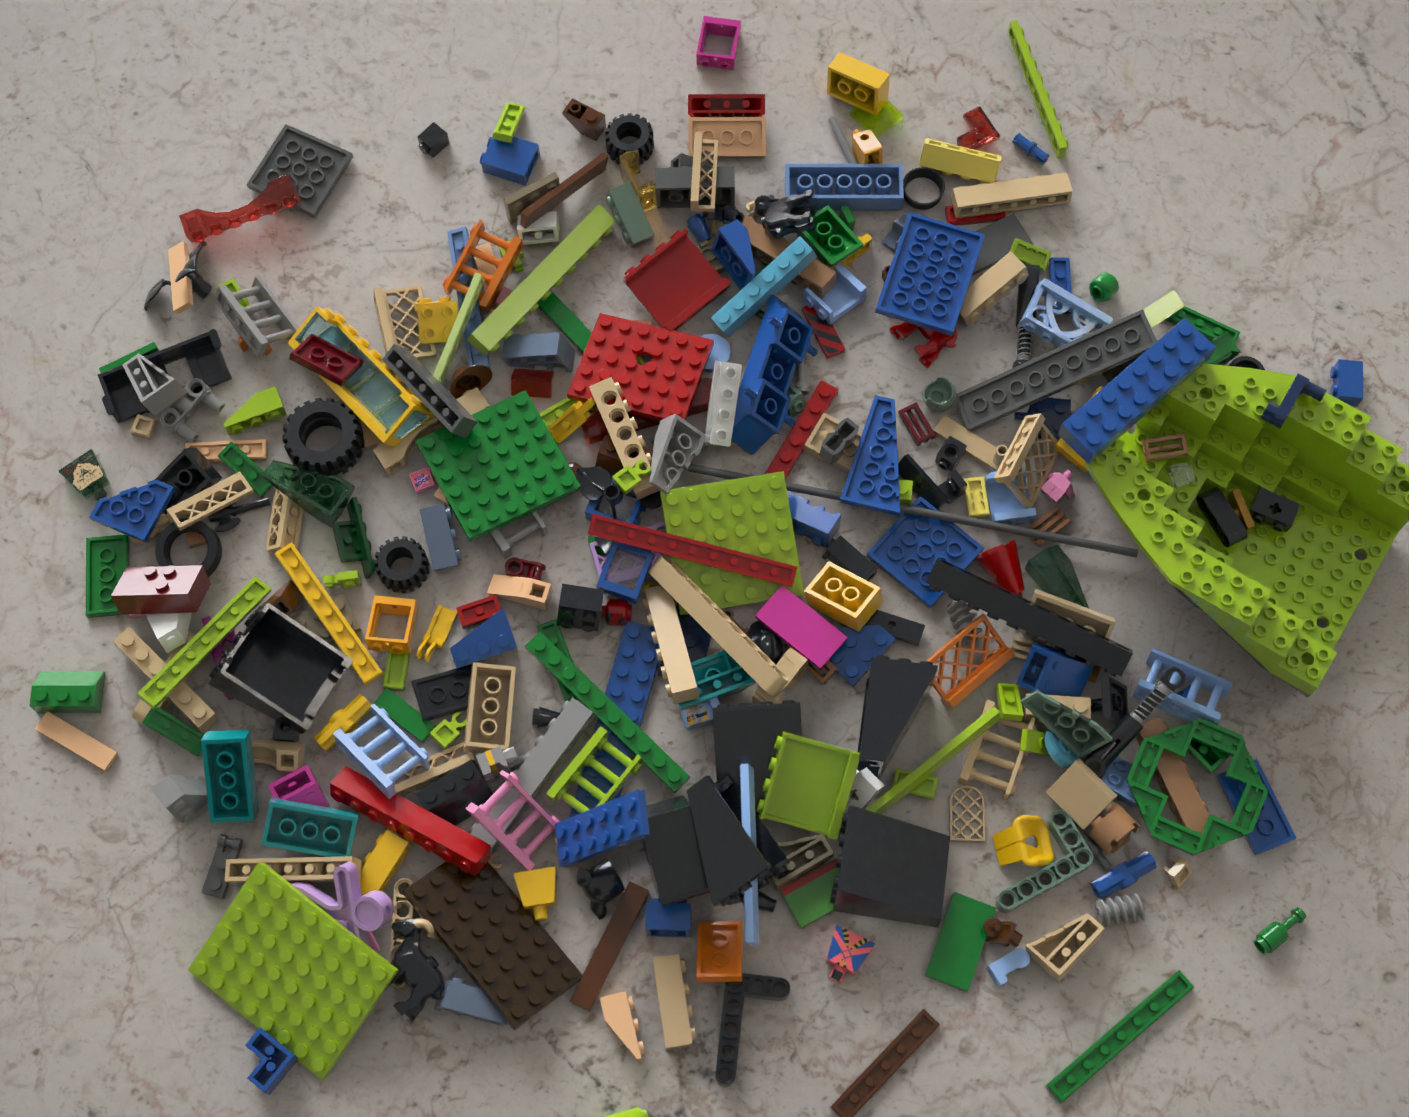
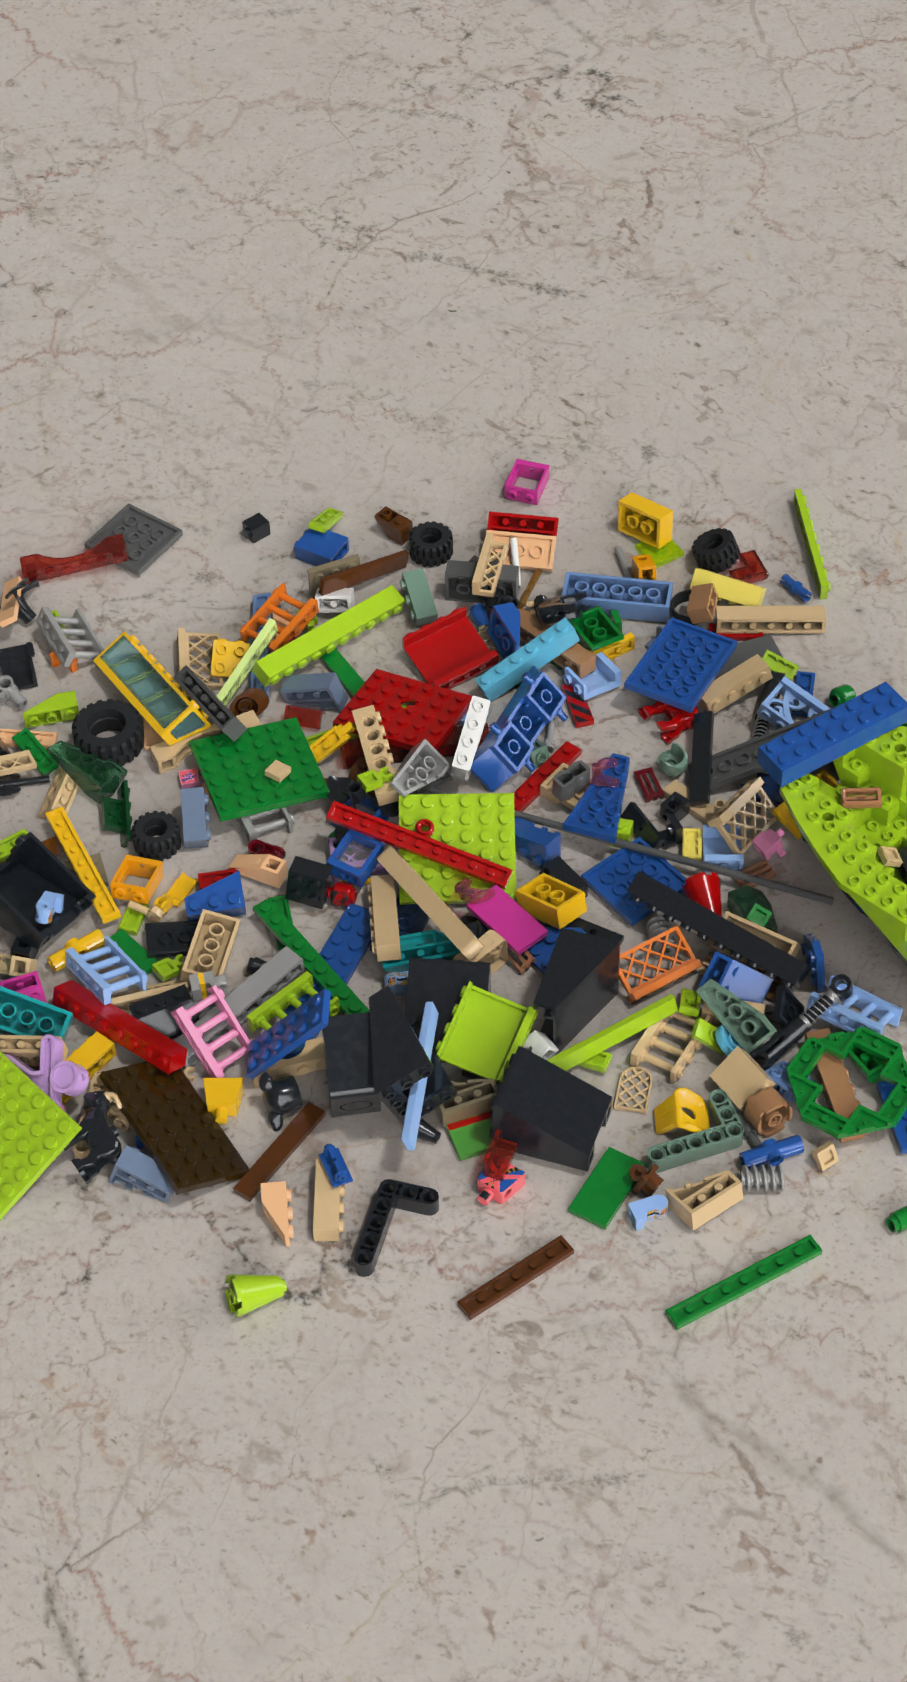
camera: 10 degrees right, 20 degrees down
(301, 682) = (47, 906): none -> light blue leg
(326, 360) = (124, 673): dark red tile -> none
(344, 579) = (103, 842): lime plate -> none
(416, 665) = (153, 914): none -> tan bar
(521, 471) = (278, 771): none -> tan tile
(646, 192) = (434, 577): clear yellow panel -> none
(669, 920) = (337, 1128): blue brick -> none
(676, 969) = (335, 1166): none -> blue hinge
(702, 529) = (424, 823): none -> red plate
(719, 951) = (378, 1161): orange plate -> none
(724, 146) = (514, 554): none -> white bar
(747, 185) = (529, 588): none -> pearl gold bar
(759, 605) = (473, 895): none -> clear pink helmet
(847, 932) = (499, 1157): none -> clear red panel
(866, 433) = (599, 778): none -> clear pink helmet
(935, 102) = (716, 550): none -> black tyre
(938, 188) = (702, 603): none -> medium nougat brick
(970, 389) = (701, 758): none -> black tile
(1065, 587) = (759, 915): none -> green plate
(1131, 632) = (815, 960): none -> blue plate
(1181, 474) = (877, 827): clear tile -> none
(1199, 507) = (889, 856): none -> tan tile

